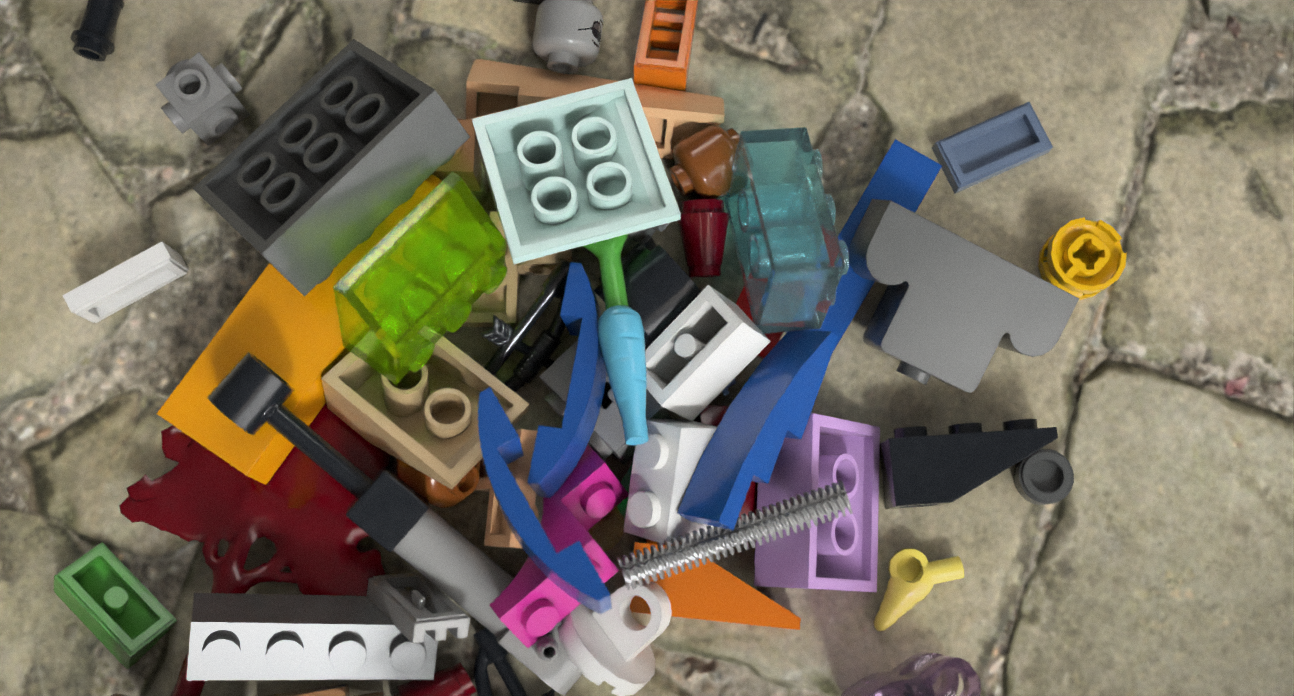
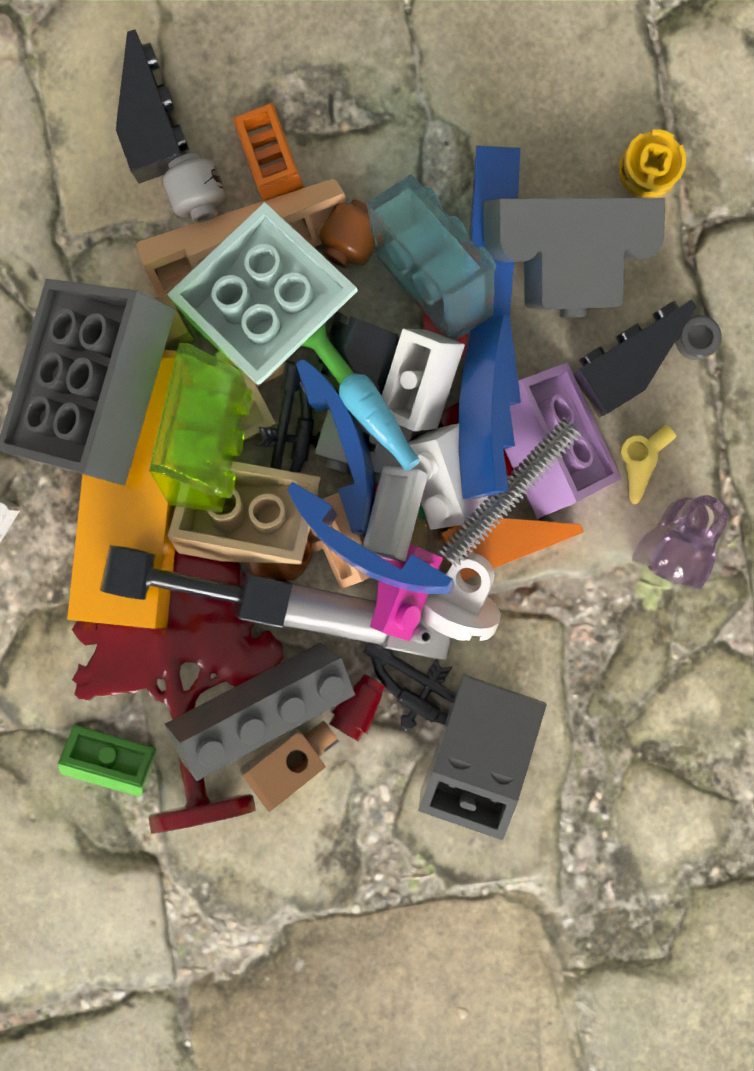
camera: 25 degrees left, 10 degrees up
(408, 609) = (319, 654): light grey tile -> none
(589, 487) = (395, 512): none -> white tile
(703, 236) = (375, 290): dark red cone -> none
(992, 147) = (547, 112): sand blue tile -> none

